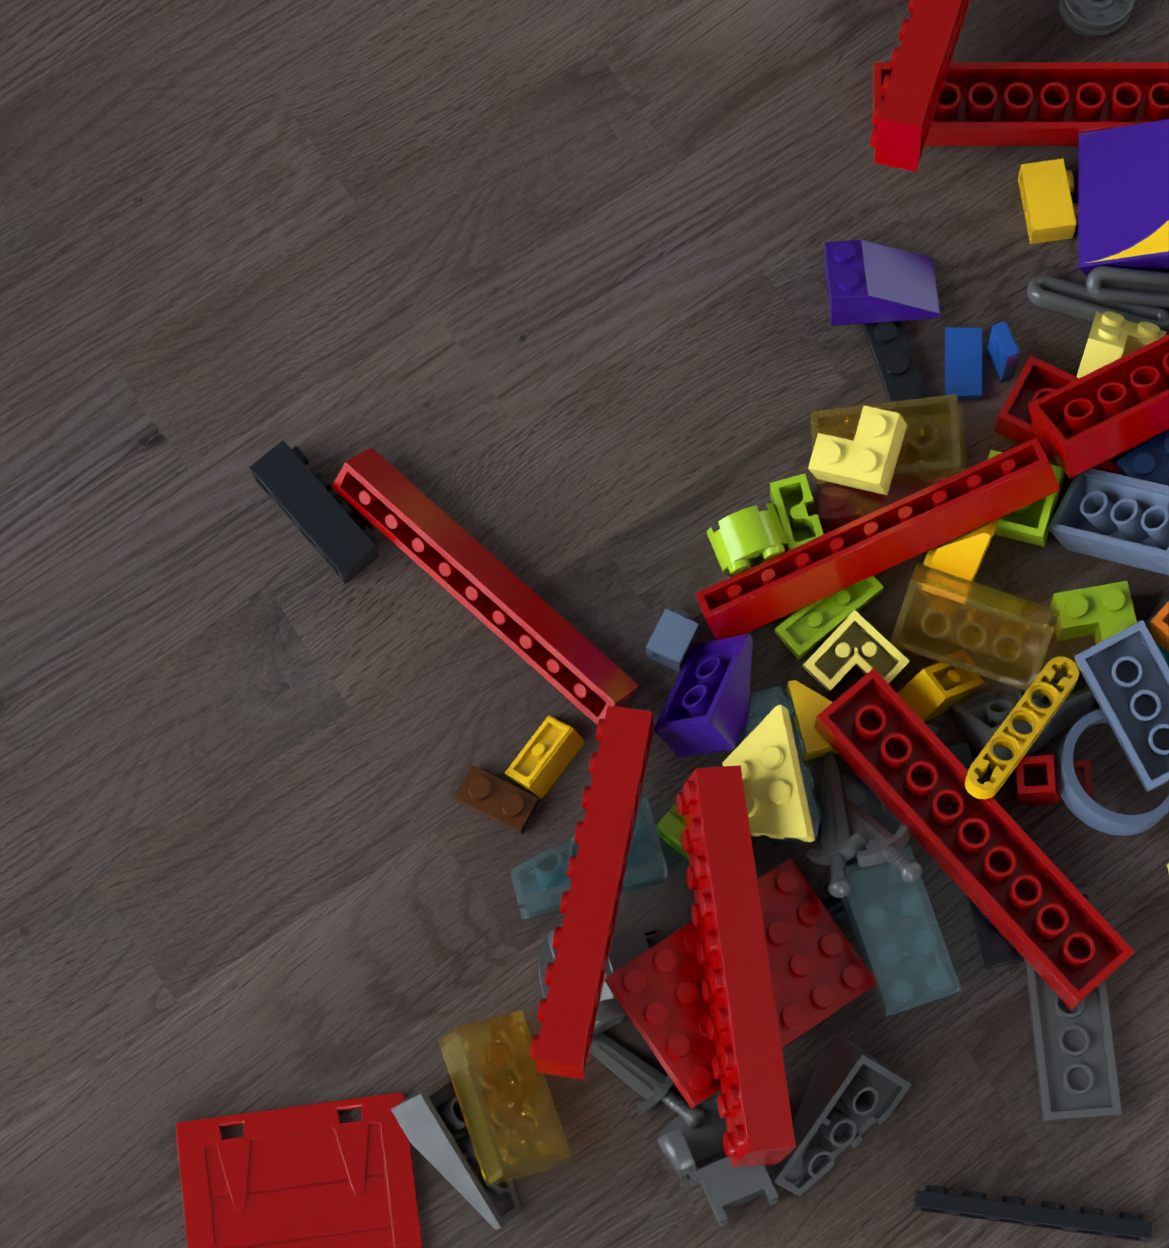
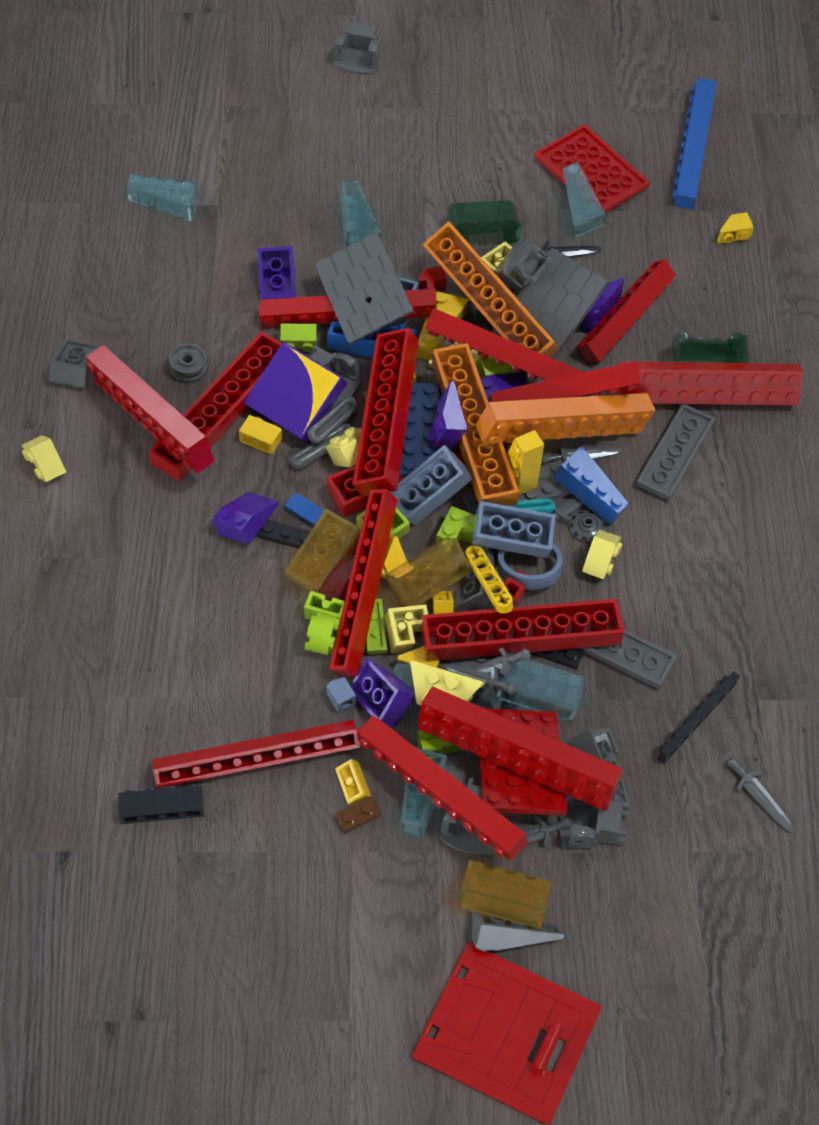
camera: 65 degrees left, 15 degrees down
(866, 461) = (327, 559): light yellow brick -> none
(1003, 351) = (315, 488): blue tile -> none

